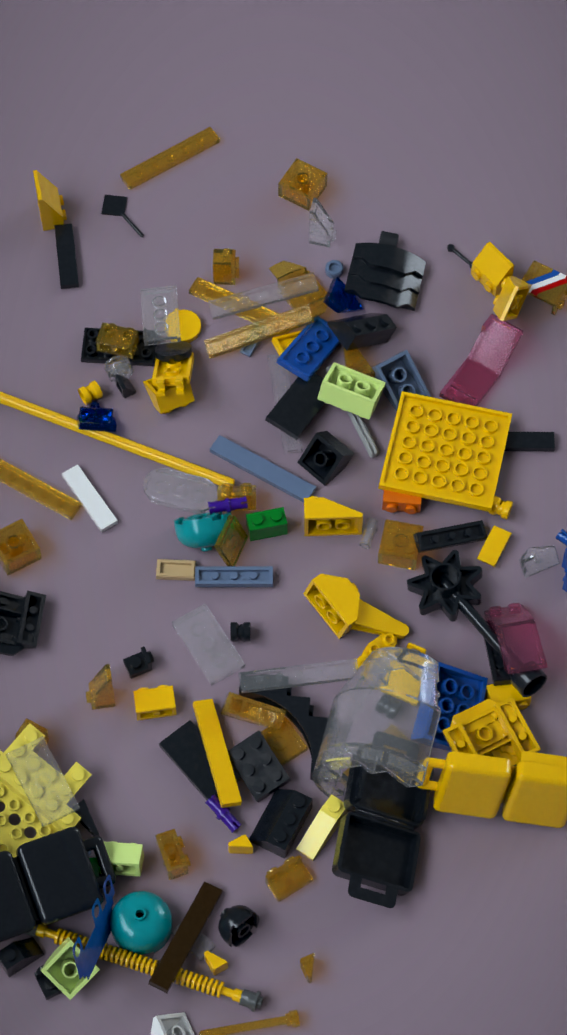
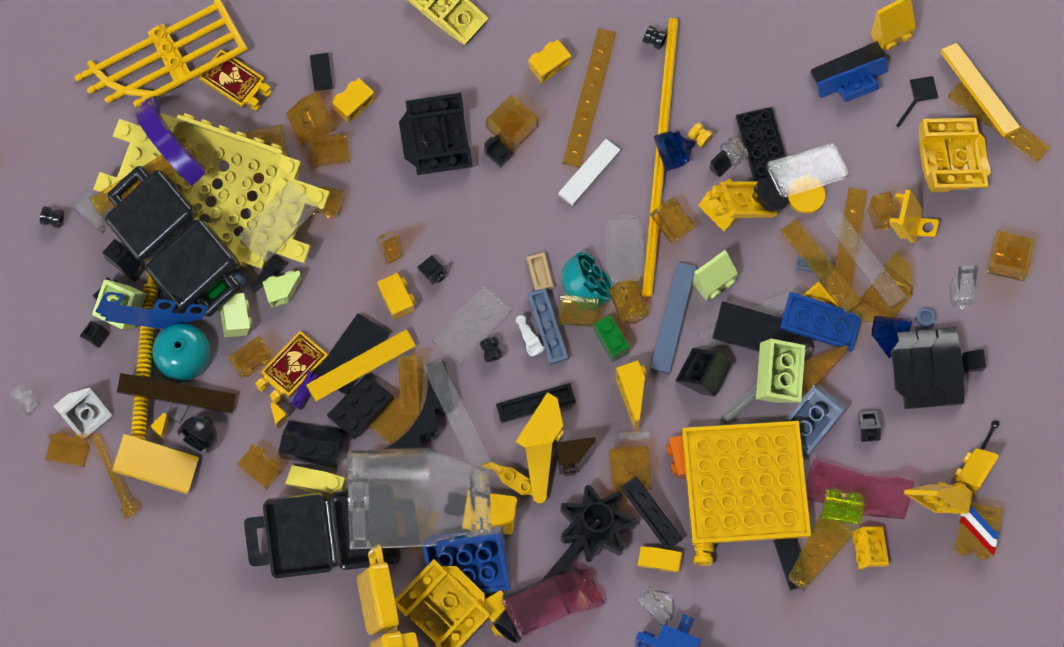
camera: 75 degrees right, 10 degrees up
(36, 571) = (497, 151): none -> black bracket
(88, 253) = (855, 81): none -> blue bracket
(88, 1008) = (94, 334): none -> black slope
(109, 808) = (281, 288): none -> yellowish green slope
(117, 340) = (761, 138): clear yellow brick -> none
(135, 160) = (980, 90): none -> yellow tile
(169, 438) = (672, 220): none -> clear yellow brick
(190, 200) = (953, 154): none -> yellow slope
(193, 821) = (291, 366): none -> tile
(228, 505) = (612, 294): dark purple pin -> none
(237, 419) = (715, 276): none -> yellowish green slope
(248, 252) = (910, 222): none -> yellow piece
(248, 596) = (532, 342): none -> white piece
(255, 975) = (155, 464): none -> yellow tile
(305, 614) = (527, 404): none -> black tile
(307, 966) = (177, 508): clear yellow slope -> none
(363, 330) = (856, 362): black slope -> none
(375, 586) = (574, 454): none -> dark brown slope
(421, 340) = (869, 426): none -> black bracket
(492, 380) = (842, 506): none -> clear neon green bracket
(526, 413) = (824, 544): none -> clear yellow wing
(535, 375) = (870, 547): none -> yellow bracket

